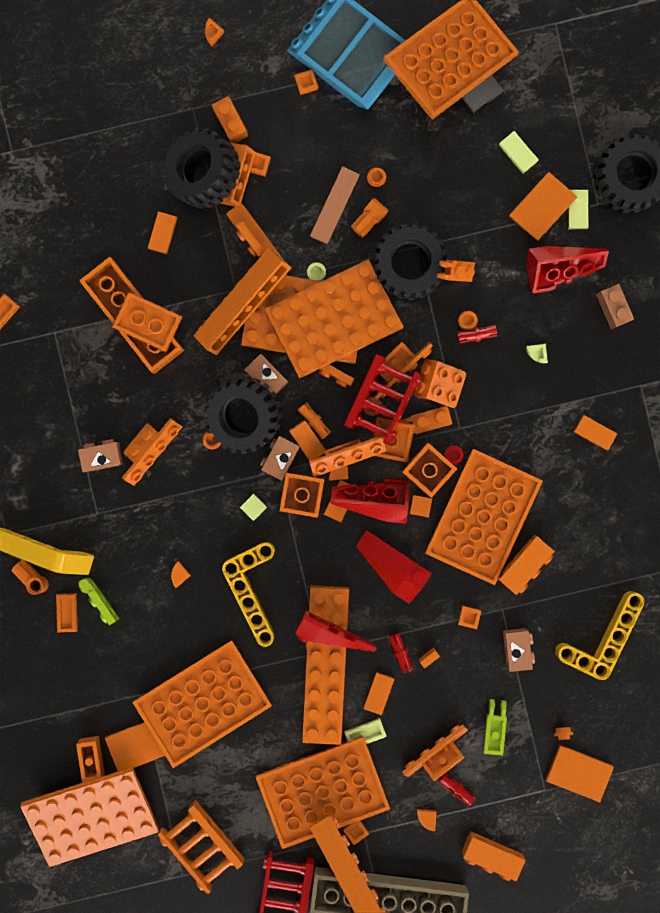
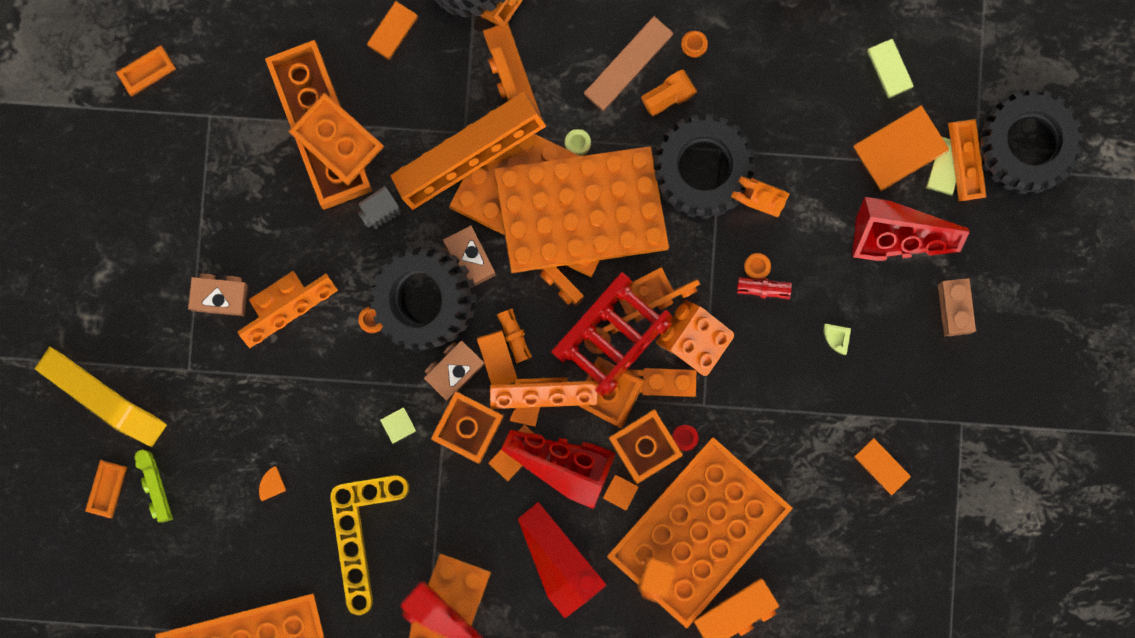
camera: 15 degrees right, 5 degrees down
(28, 576) = (72, 424): orange piece -> none
(192, 361) = (378, 208): none -> dark grey brick
(465, 560) = (656, 579): none -> orange brick
(591, 200) = (967, 160): none -> orange tile

